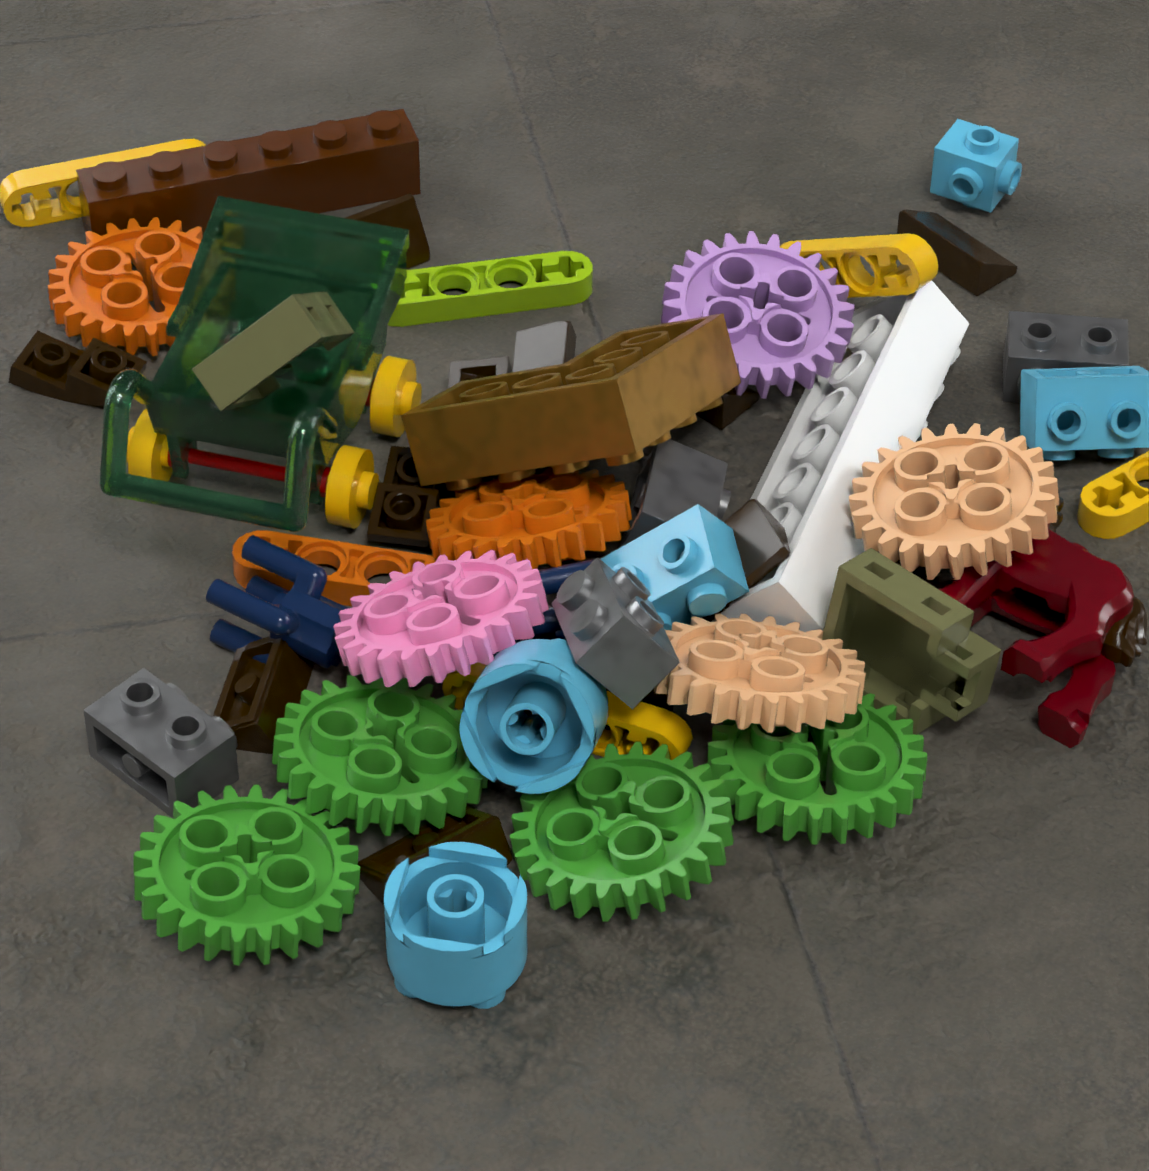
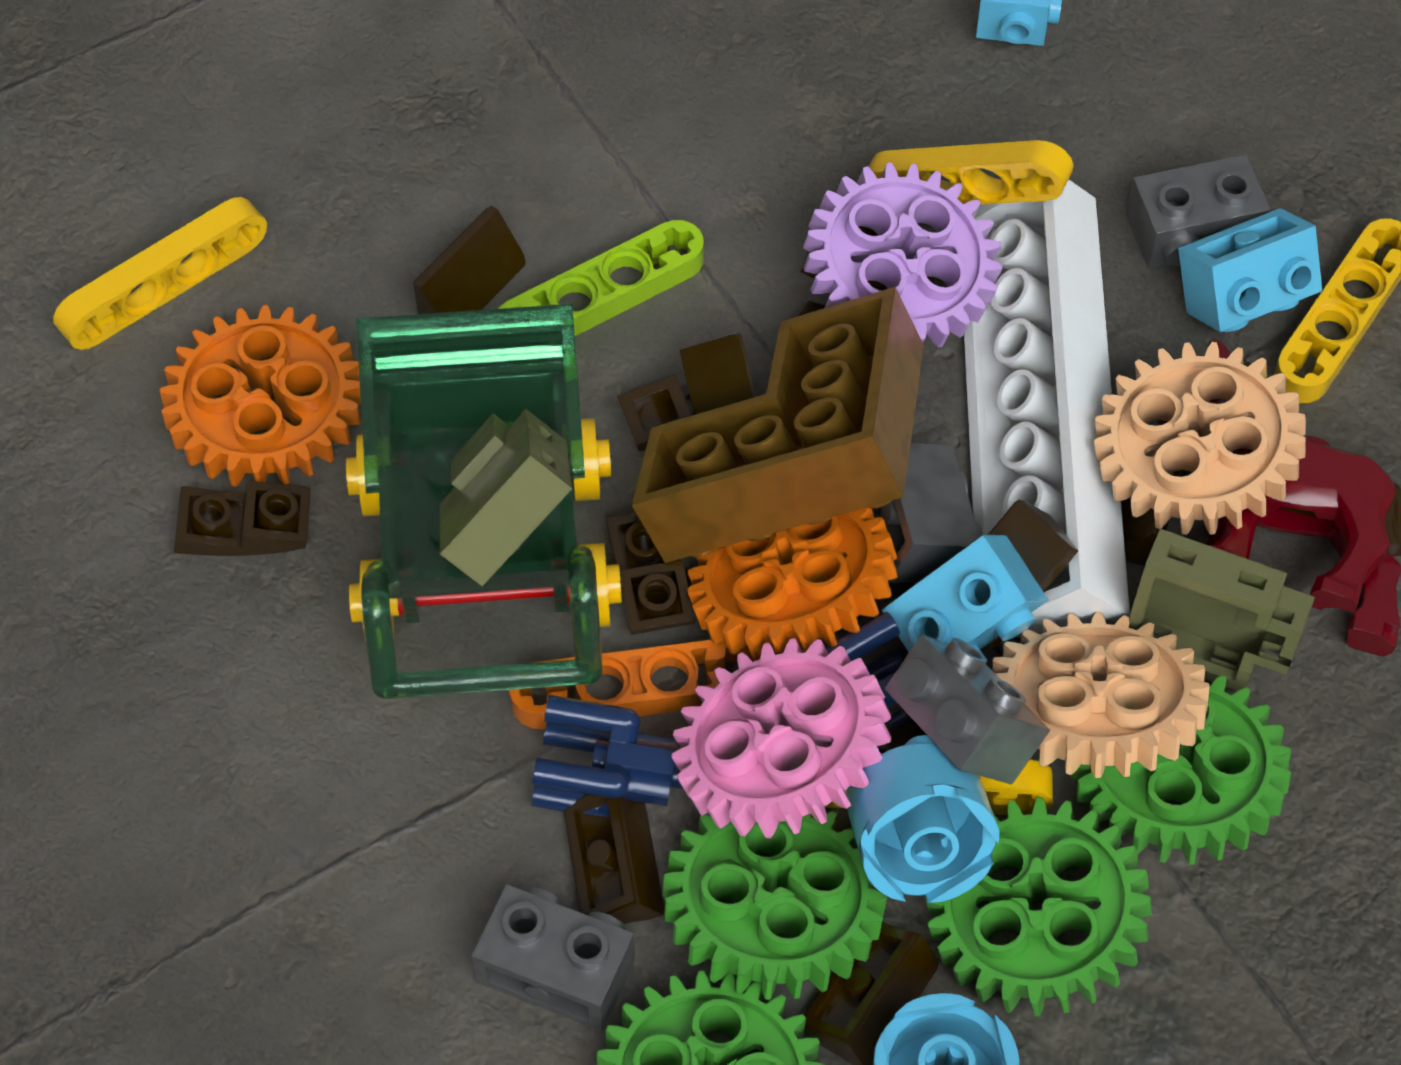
camera: 20 degrees left, 15 degrees up
(297, 169) = (312, 228): reddish brown brick -> none
(957, 252) = (1030, 104): dark brown slope -> none

